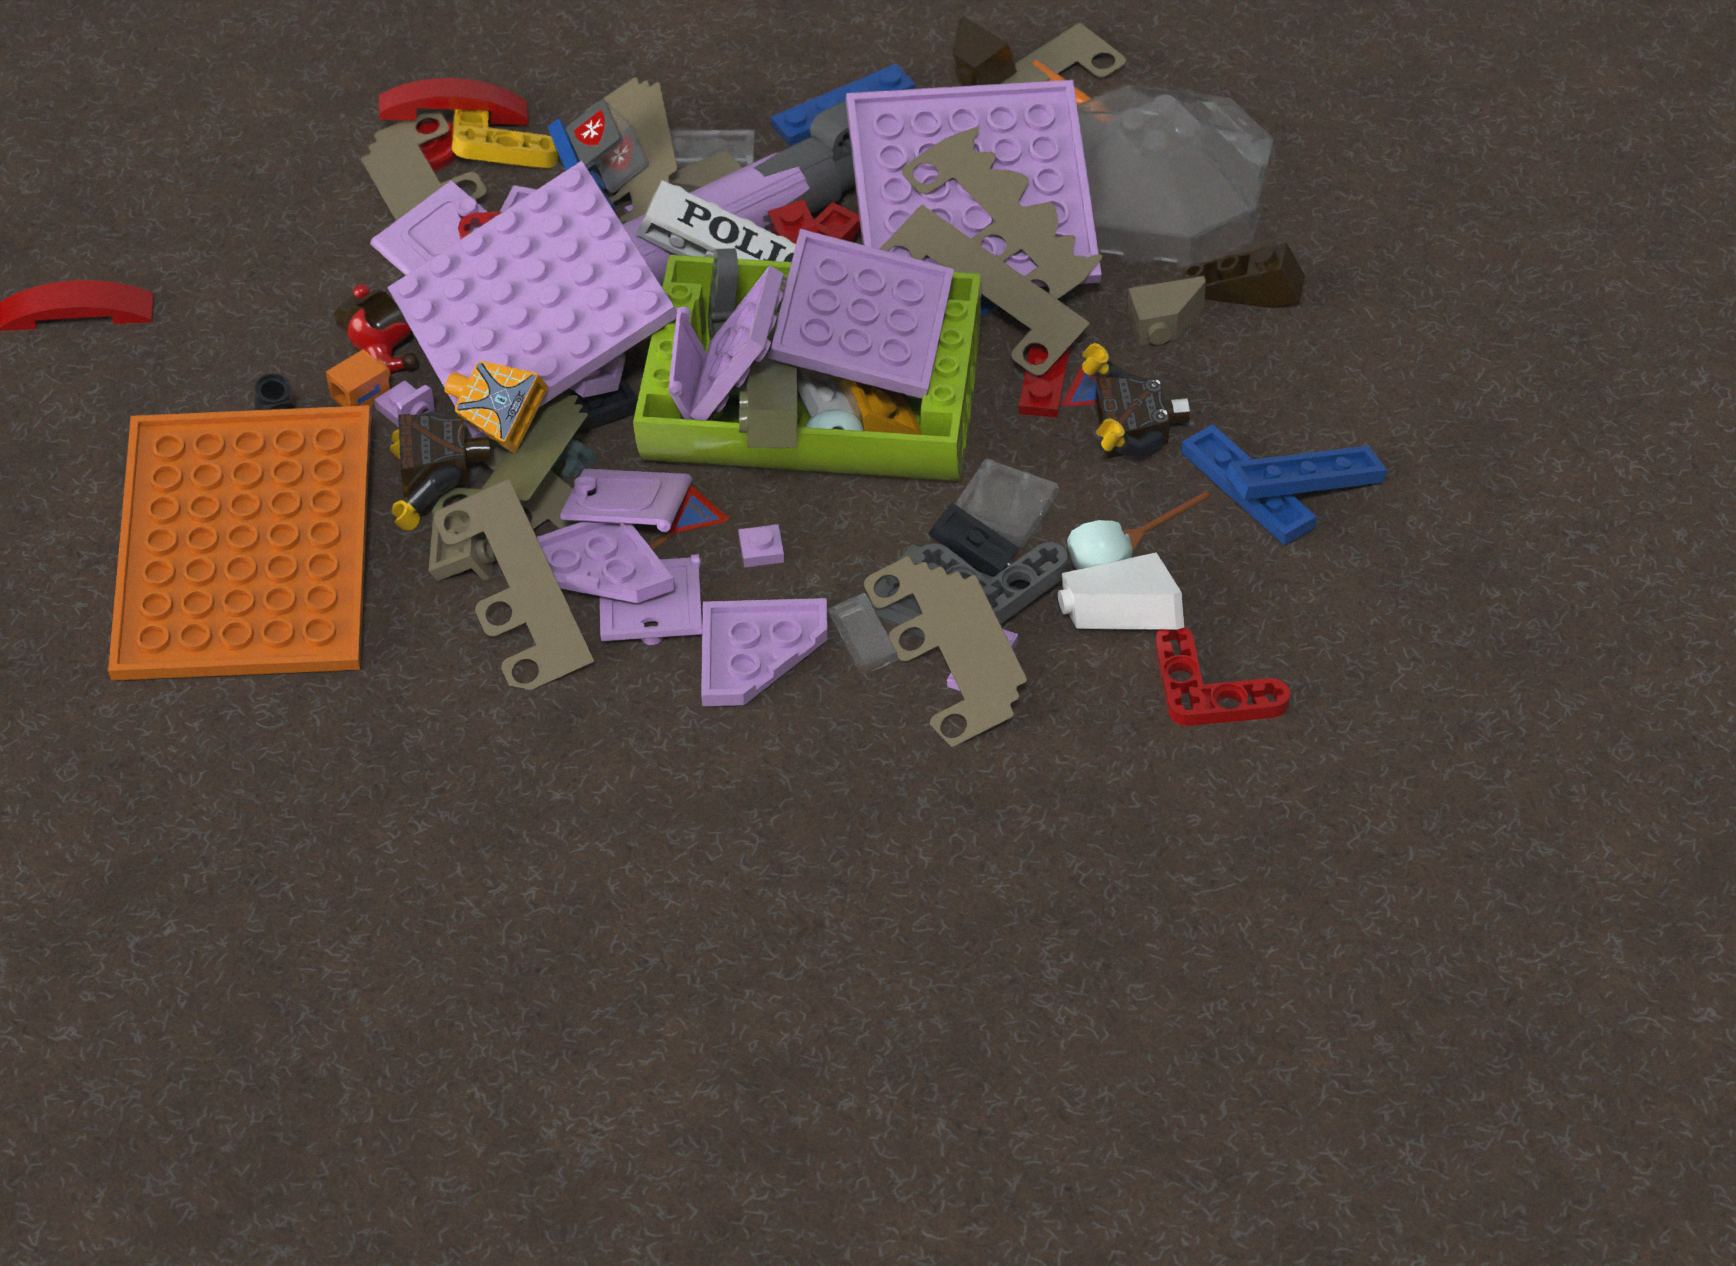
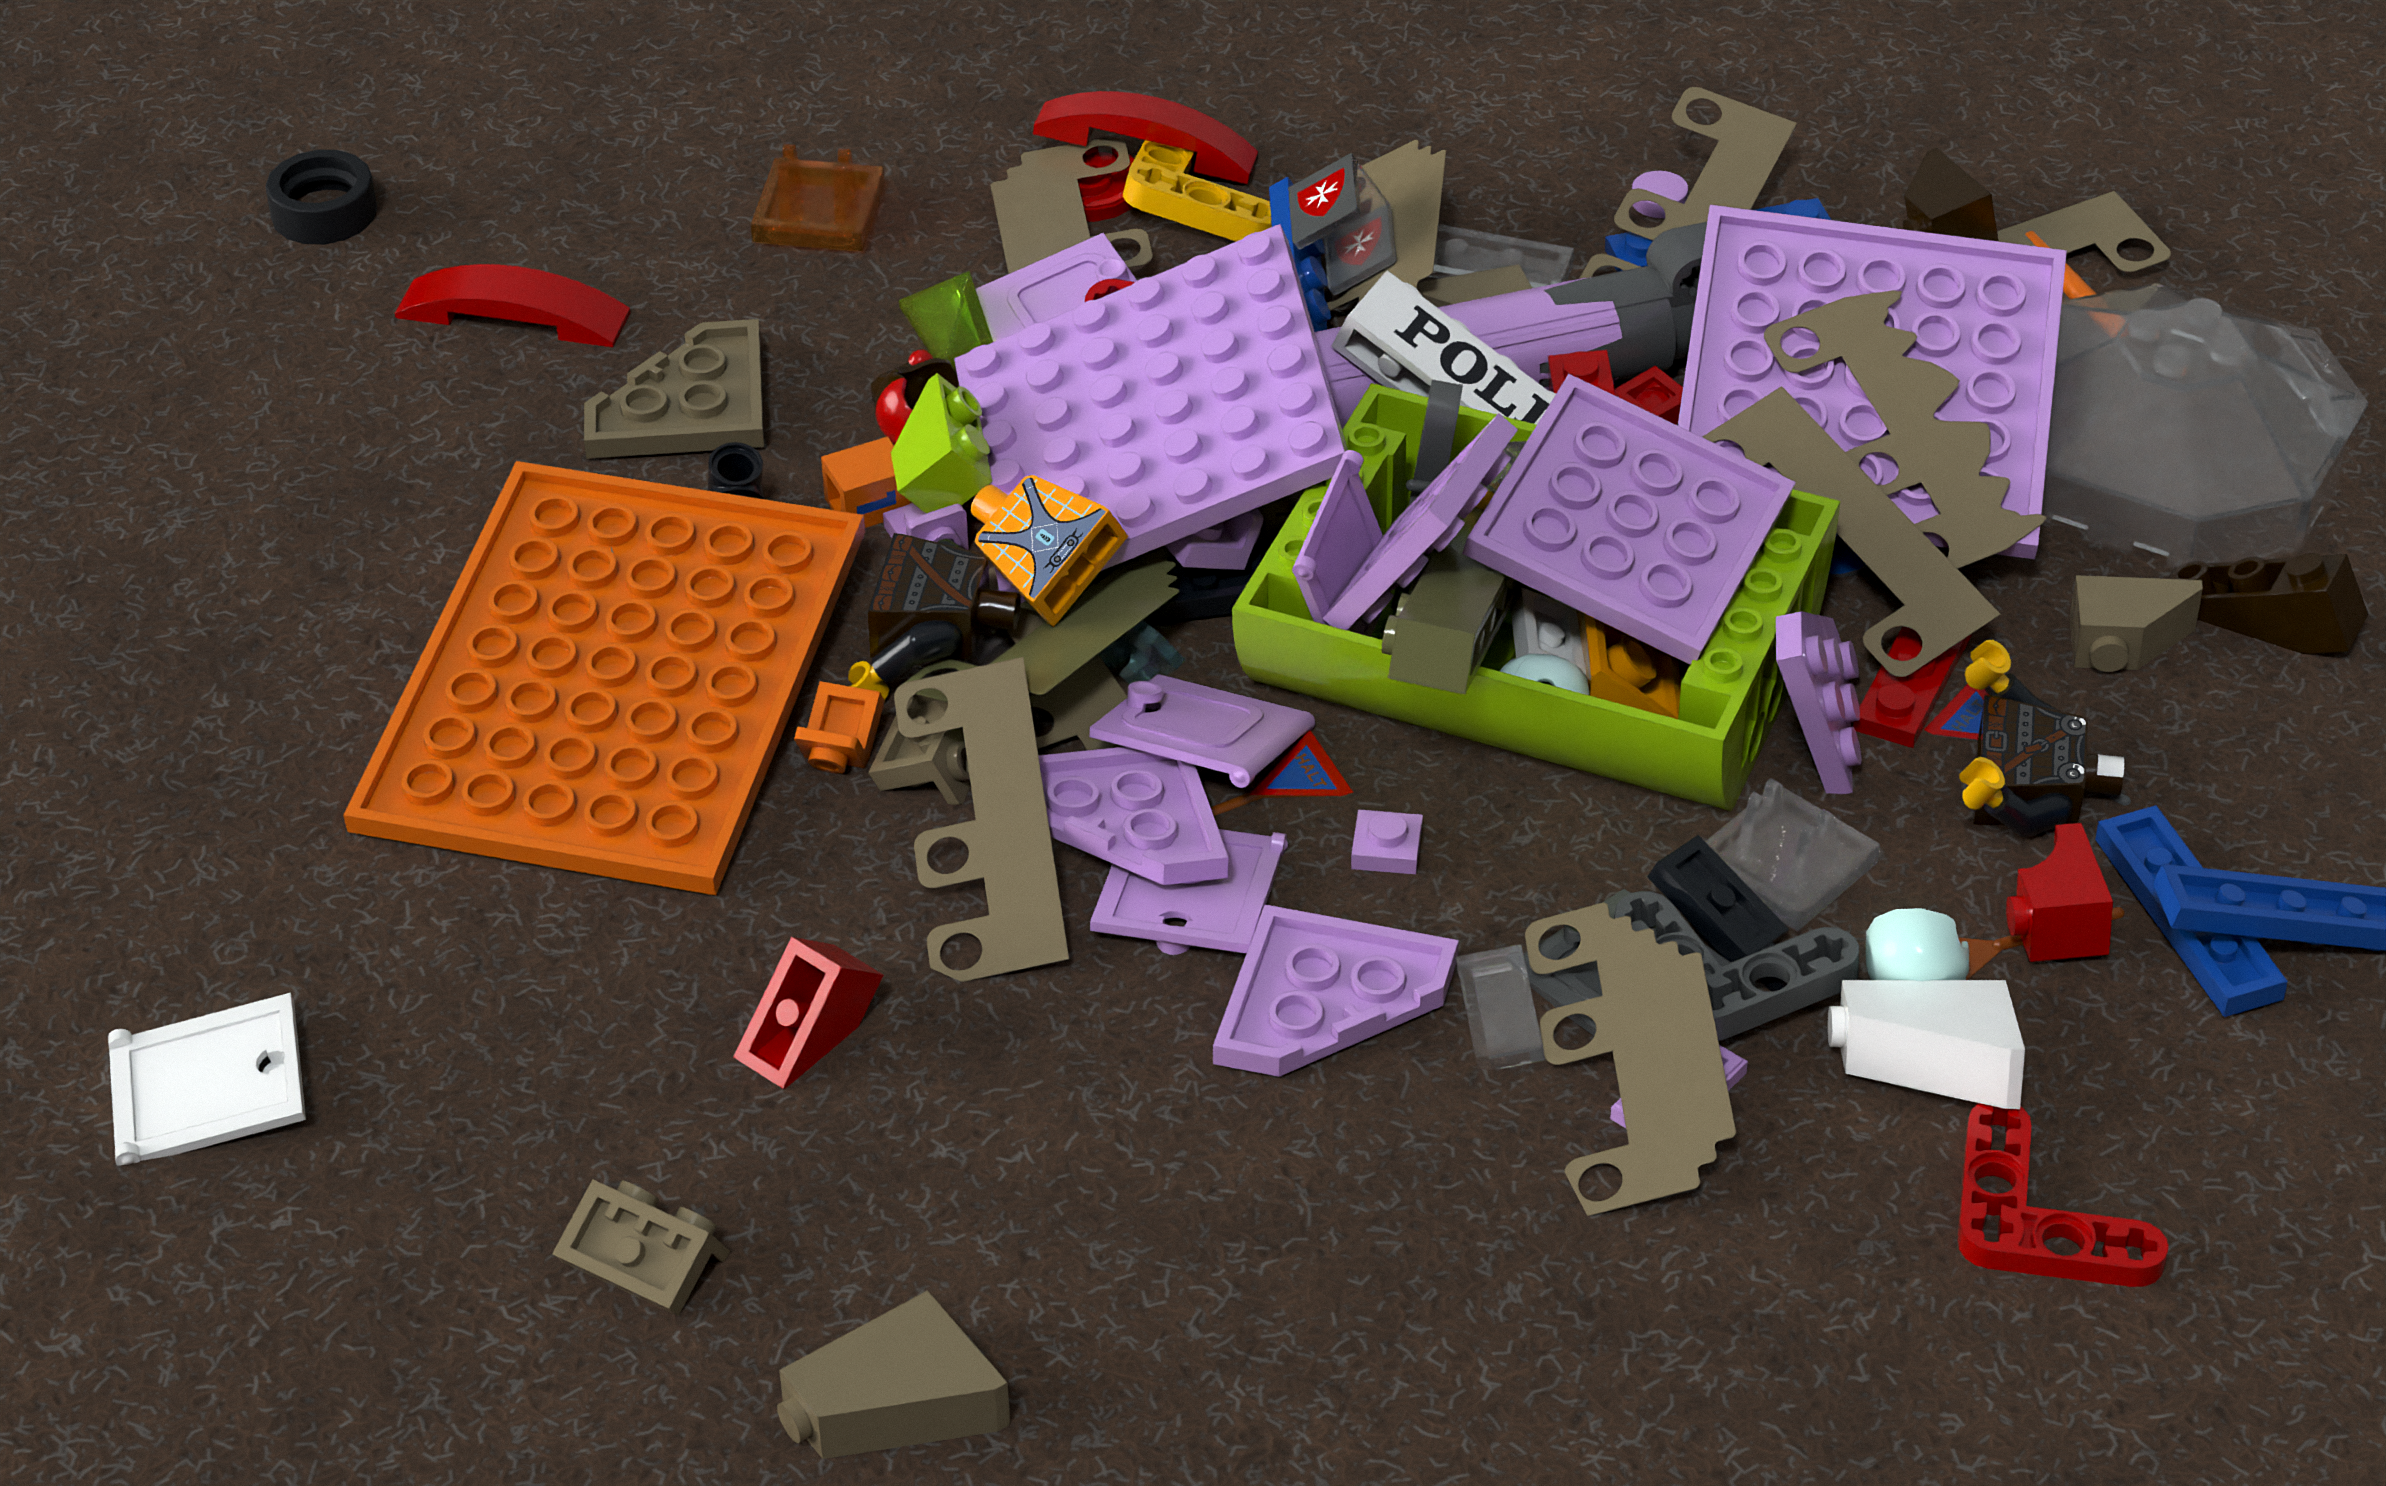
camera: 15 degrees right, 5 degrees down
(84, 858) = (203, 1080): none -> white container
(217, 347) = (686, 399): none -> dark tan plate
(252, 195) = (817, 202): none -> clear orange plate
(369, 260) = (948, 317): none -> clear neon green slope
(398, 894) = (637, 1246): none -> dark tan bracket
(400, 546) = (840, 727): none -> orange bracket
(405, 352) = (942, 448): none -> lime slope
(446, 729) = (806, 1010): none -> red slope
(583, 939) = (893, 1385): none -> dark tan slope
(794, 80) = (1663, 184): none -> lavender tile
(838, 71) = (1731, 178): none -> dark tan piece
(1003, 403) = (1818, 682): none -> lavender plate
(1175, 496) = (2062, 902): none -> red arch

